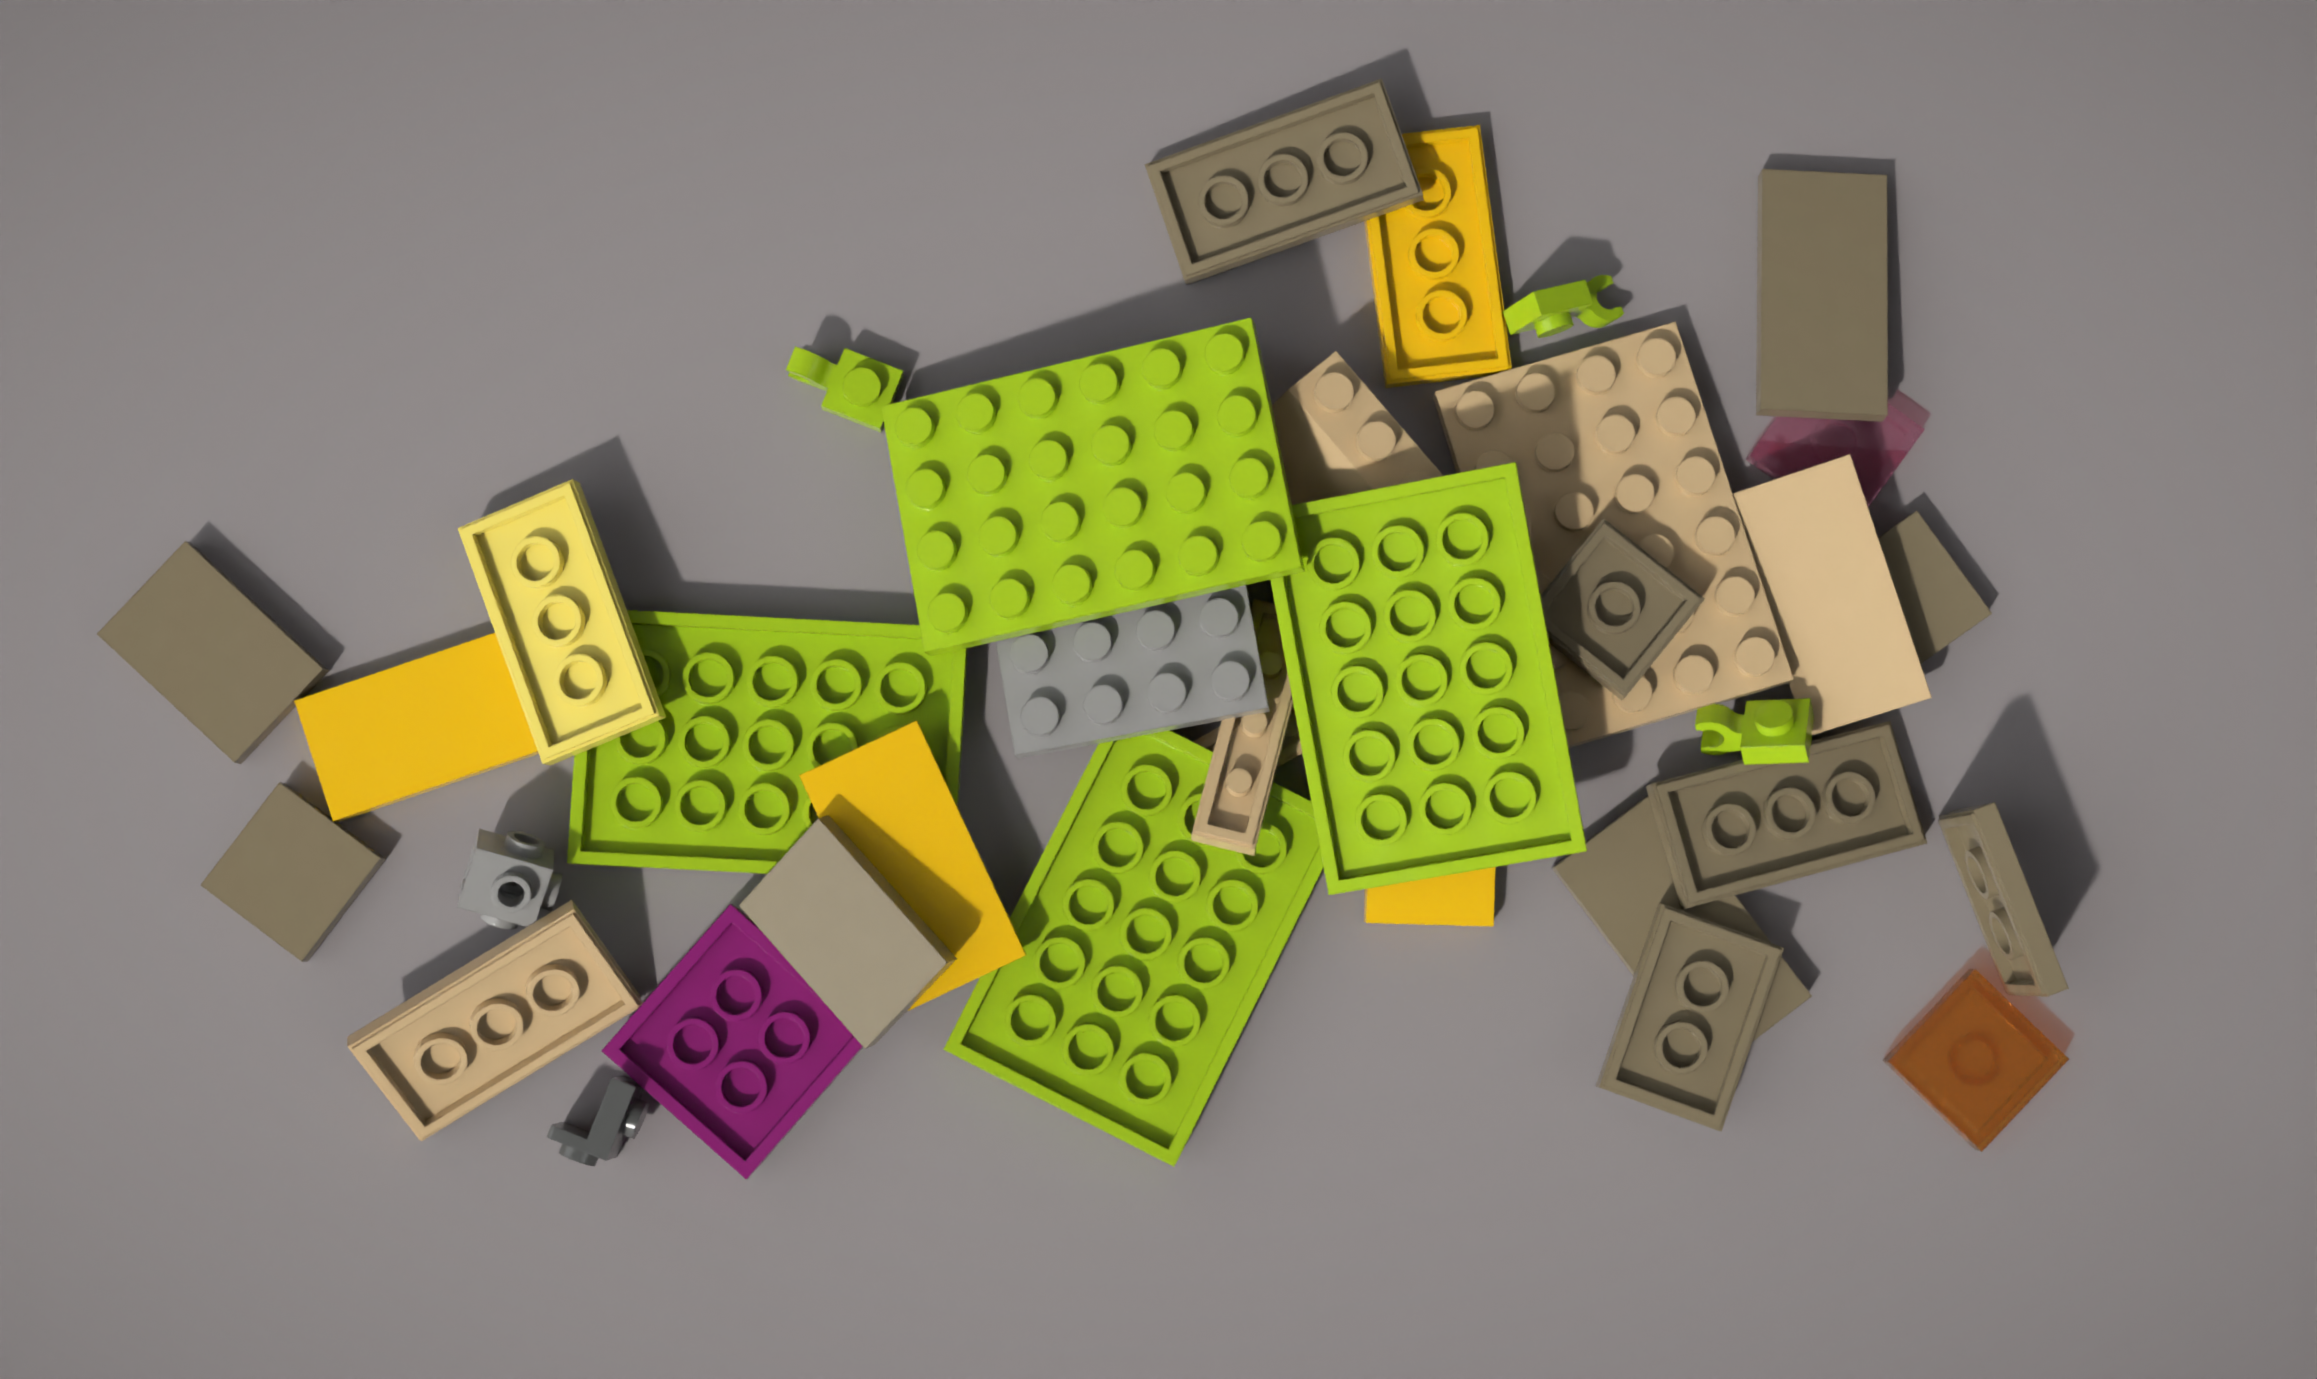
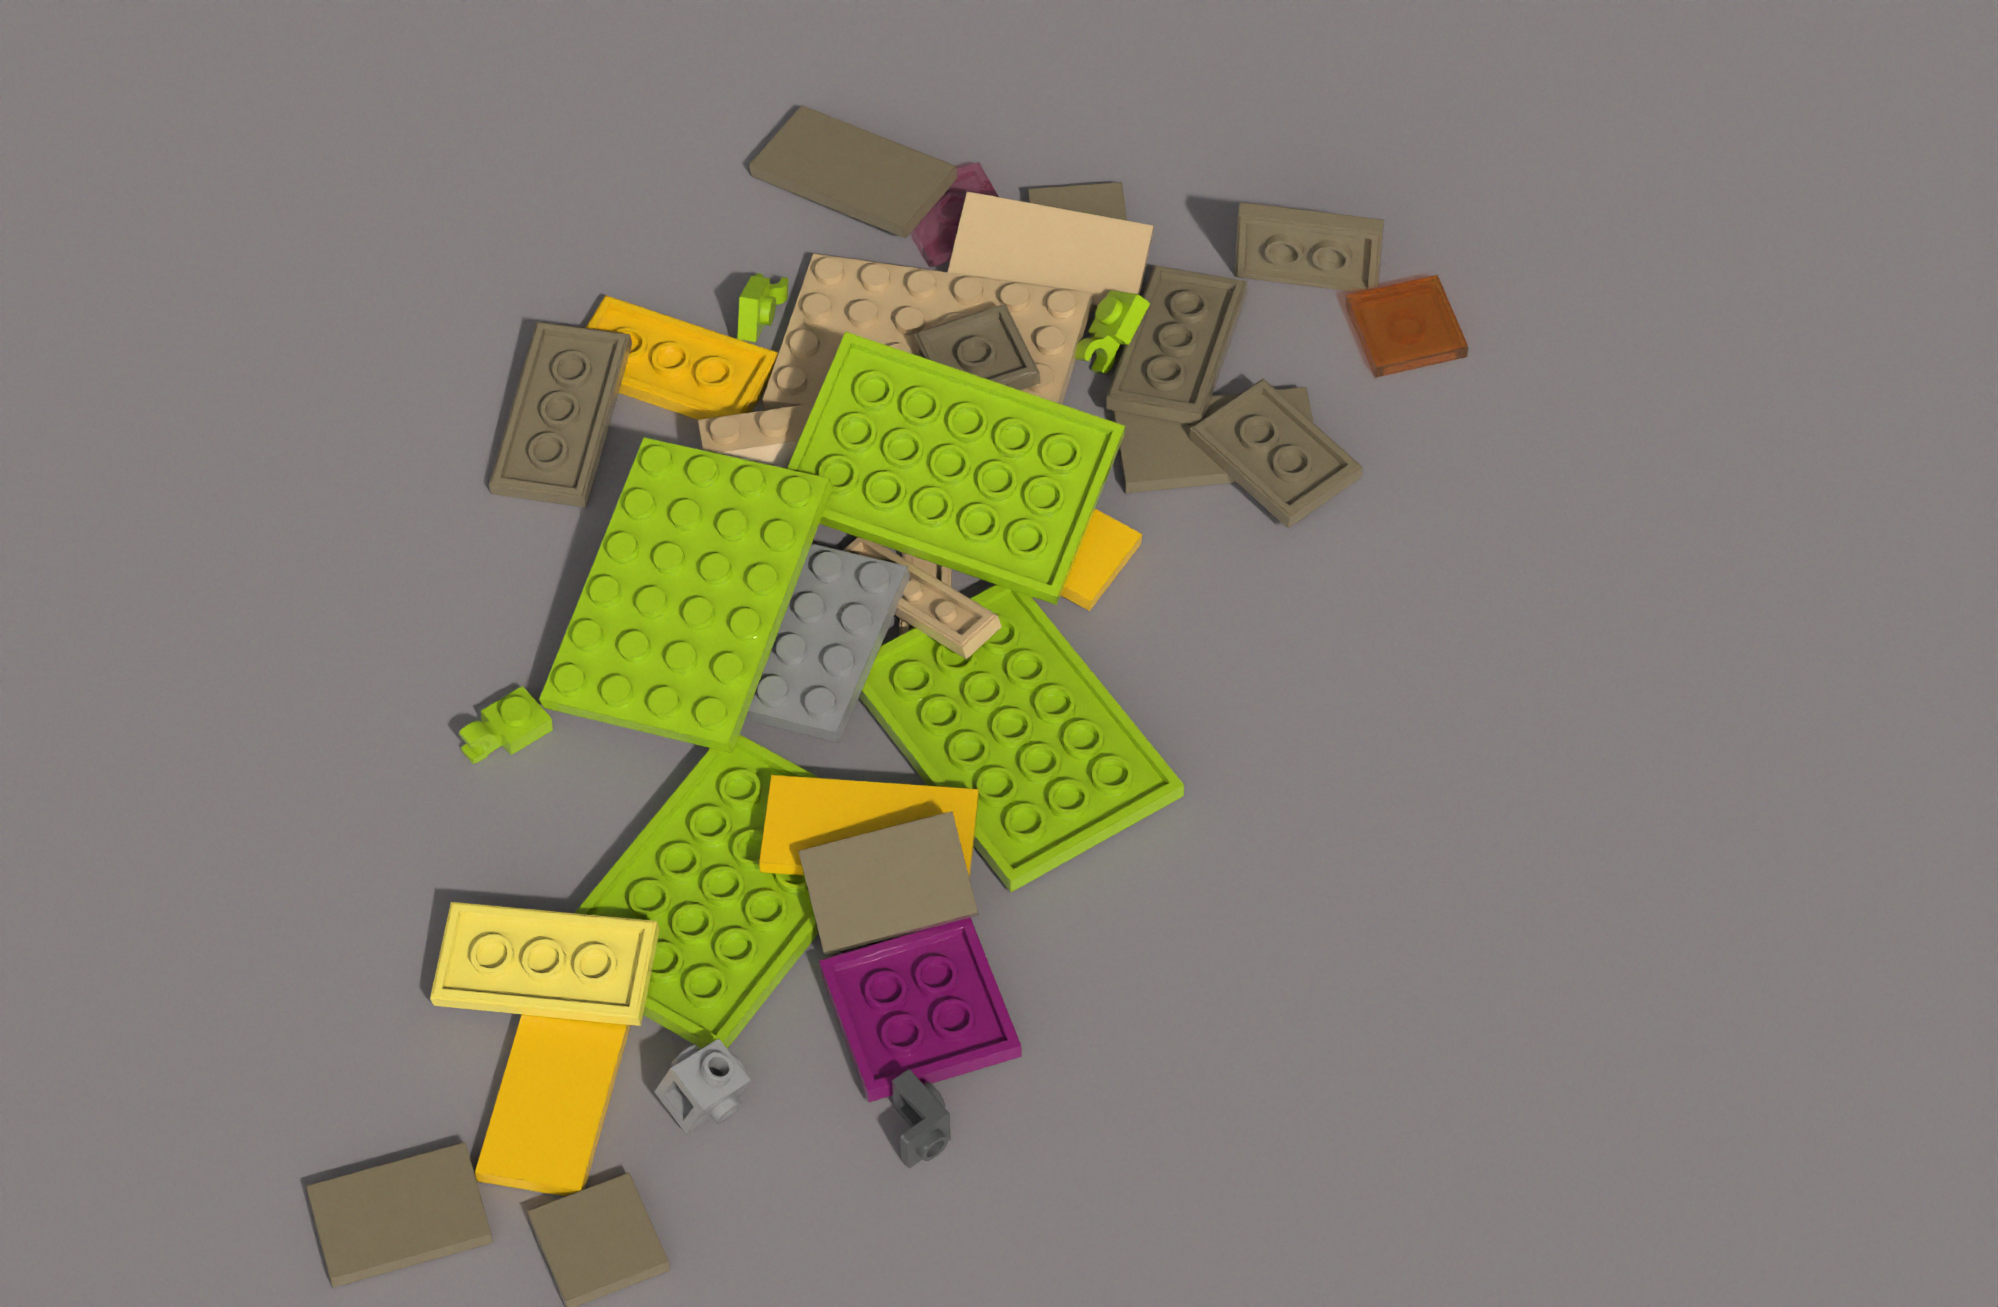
camera: 55 degrees left, 30 degrees down
(495, 1021) = (800, 1148): tan tile -> none

